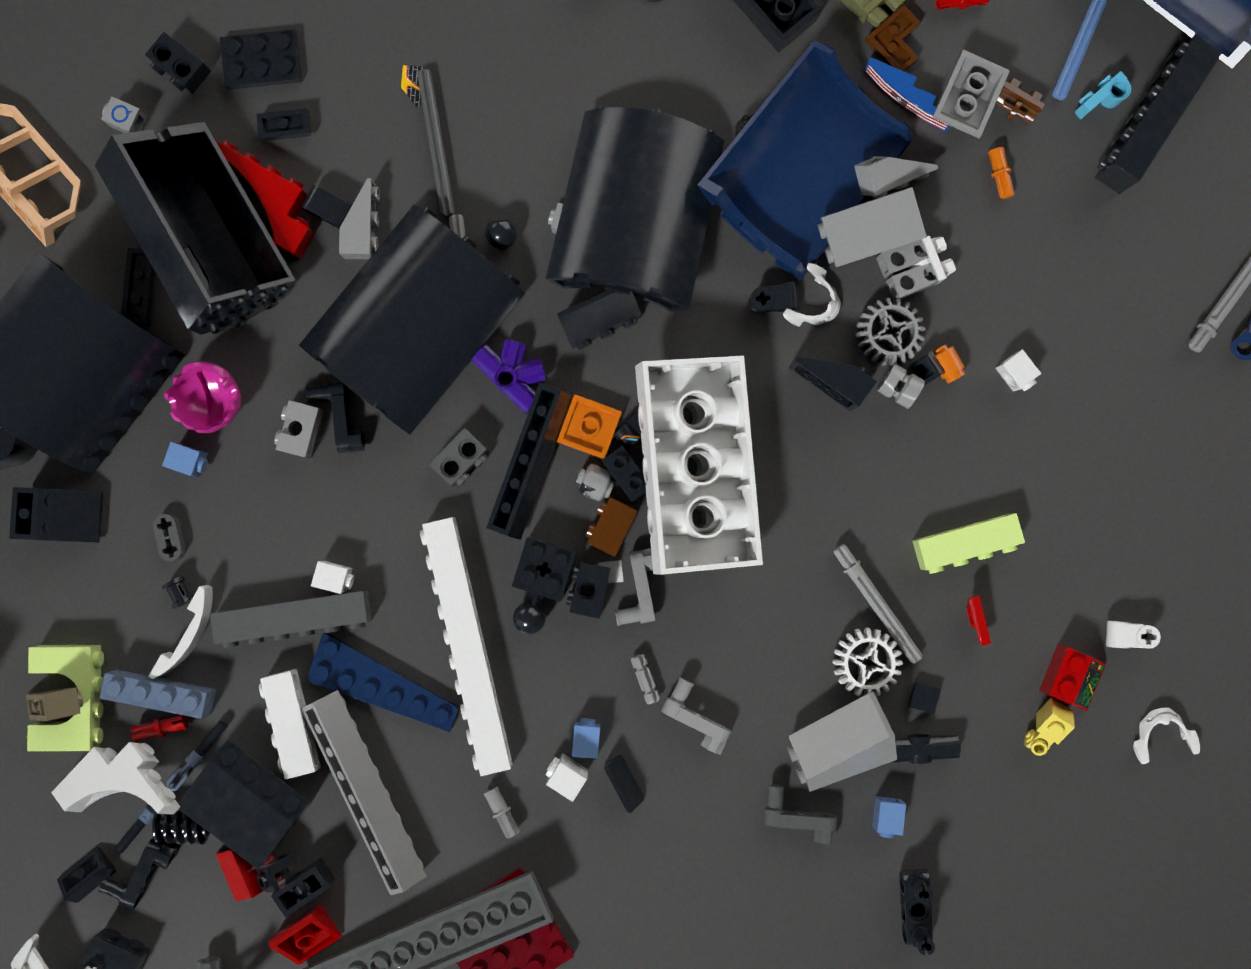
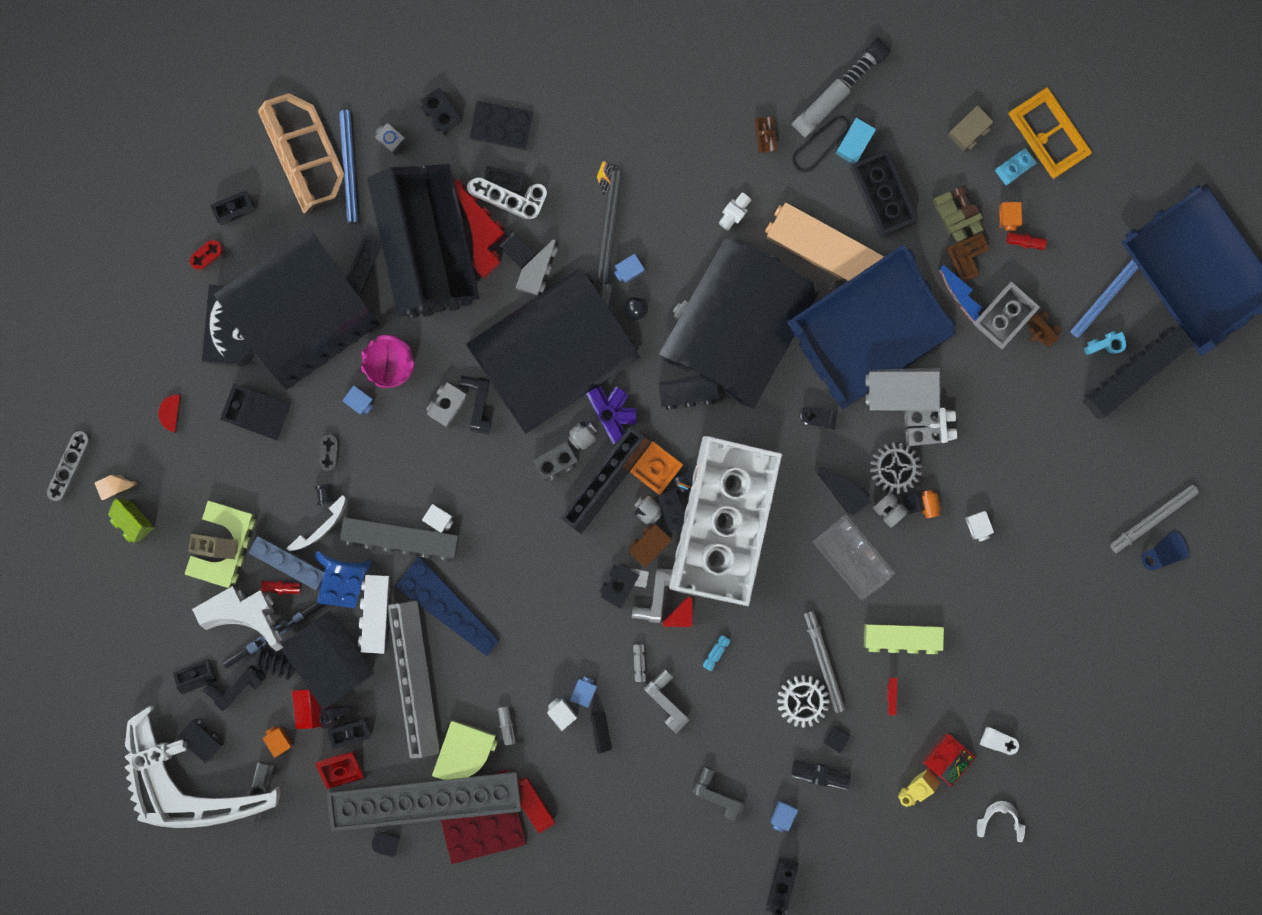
camera: 25 degrees right, 0 degrees up
(83, 169) = (348, 166): none -> medium blue axle
(215, 926) = (277, 741): none -> orange brick
(232, 696) = (341, 581): none -> blue piece
(290, 140) = (504, 195): none -> white beam
(456, 863) = (463, 751): none -> yellowish green brick
(467, 646) = (519, 598): white brick -> none
(476, 187) = (629, 269): none -> medium blue brick
(483, 414) = (583, 435): none -> light grey head
(530, 616) = (570, 590): black brick -> none
(569, 904) = (534, 806): none -> red beam
(587, 74) = (735, 211): none -> white axle
(679, 603) = (680, 616): none -> red slope
(704, 80) = (819, 243): none -> light nougat brick
(738, 635) = (716, 652): none -> medium azure axle
(833, 306) = (859, 438): white helmet -> none
(843, 744) = (766, 752): light grey slope -> none
(873, 461) = (853, 557): none -> clear slope
(885, 173) = (928, 353): light grey slope -> none
(1001, 172) = (1014, 377): orange axle -> none

